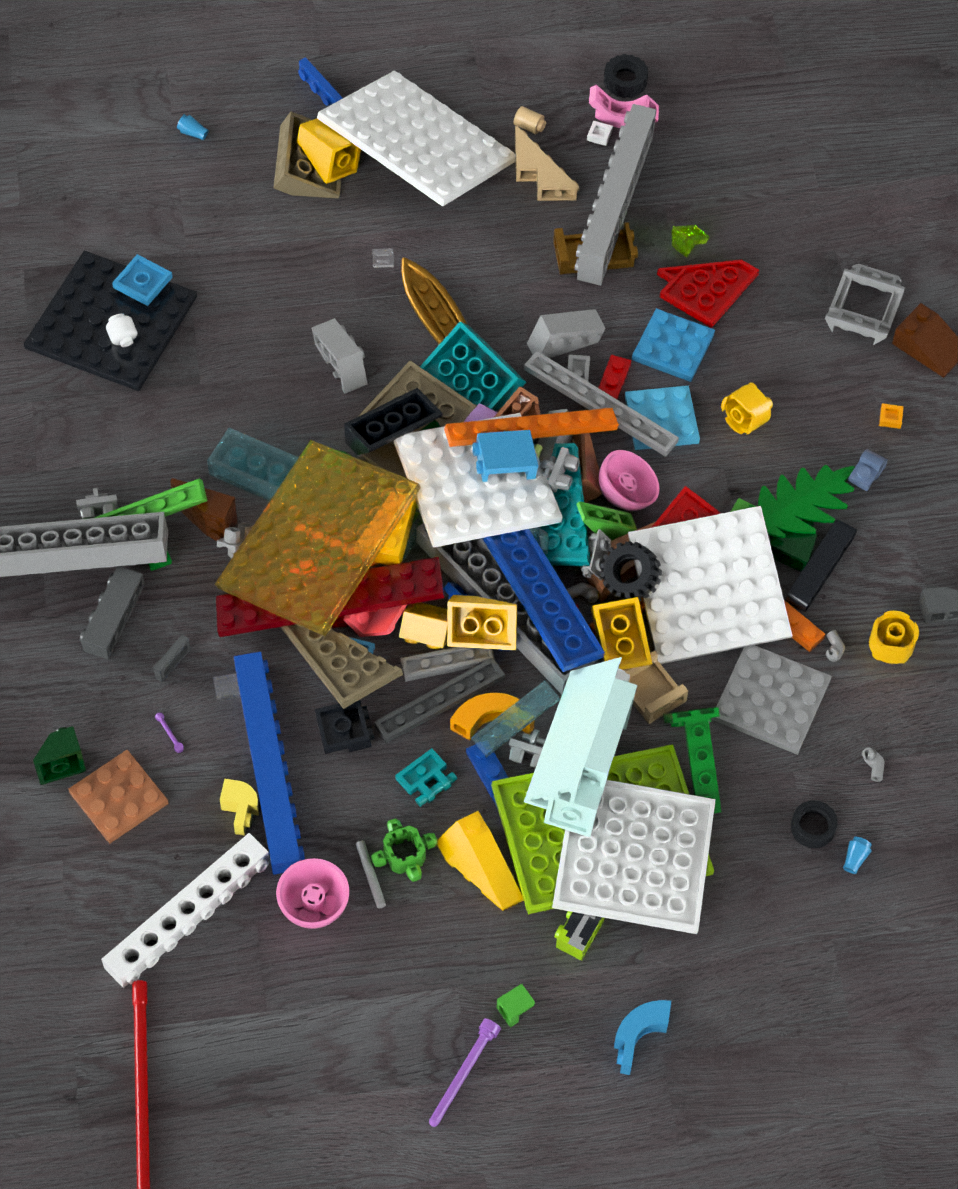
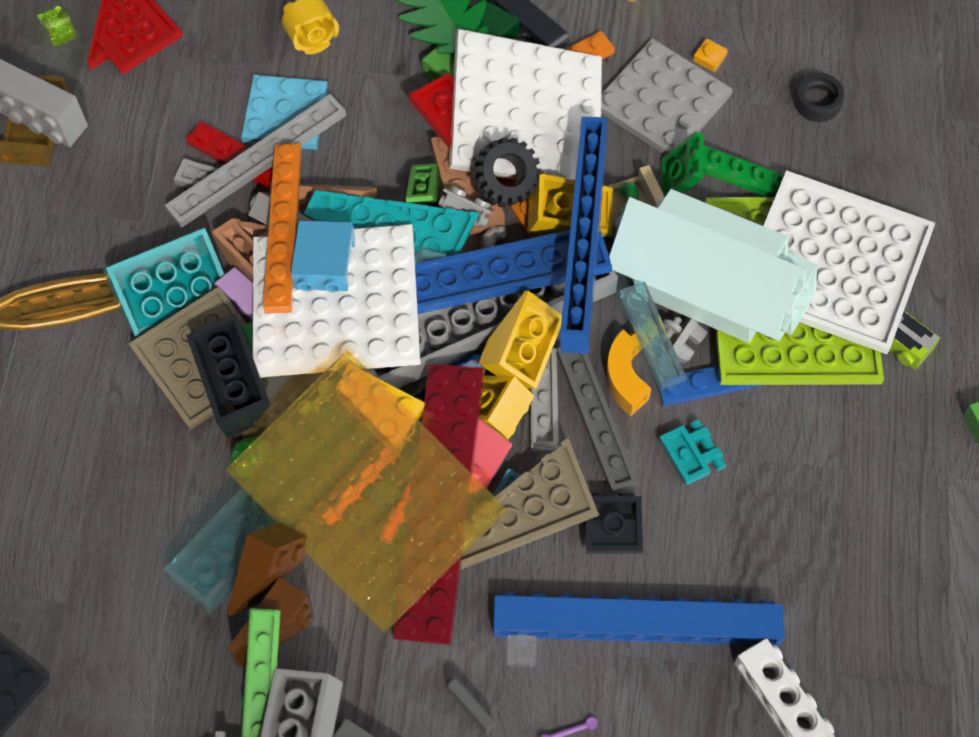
camera: 75 degrees left, 5 degrees up
(234, 537) = (325, 593): light grey hips -> none
(243, 800) = (685, 657): light yellow brick -> none
(246, 483) = (265, 558): none -> reddish brown slope
(309, 882) = (838, 585): bright pink piece -> none
(342, 353) = (84, 420): light grey wedge -> none
(370, 874) = (800, 537): light grey bar -> none
(396, 835) = (787, 511): bright green piece -> none
(474, 853) = (800, 419): yellow wedge -> none
(558, 479) = (346, 212): light grey hips -> none
(565, 332) = (144, 176): light grey wedge -> none
(583, 634) = (584, 236): none -> blue brick
(628, 481) = (372, 157): bright pink piece -> none
(655, 687) = (627, 190): none -> green arm
(673, 345) = (192, 77): dark azure plate -> none
(832, 728) = (710, 55): none -> light orange plate
(837, 646) = (618, 26): light grey arm -> none
(856, 854) = (859, 70): dark azure cone -> none
(876, 762) = (757, 28): light grey arm -> none

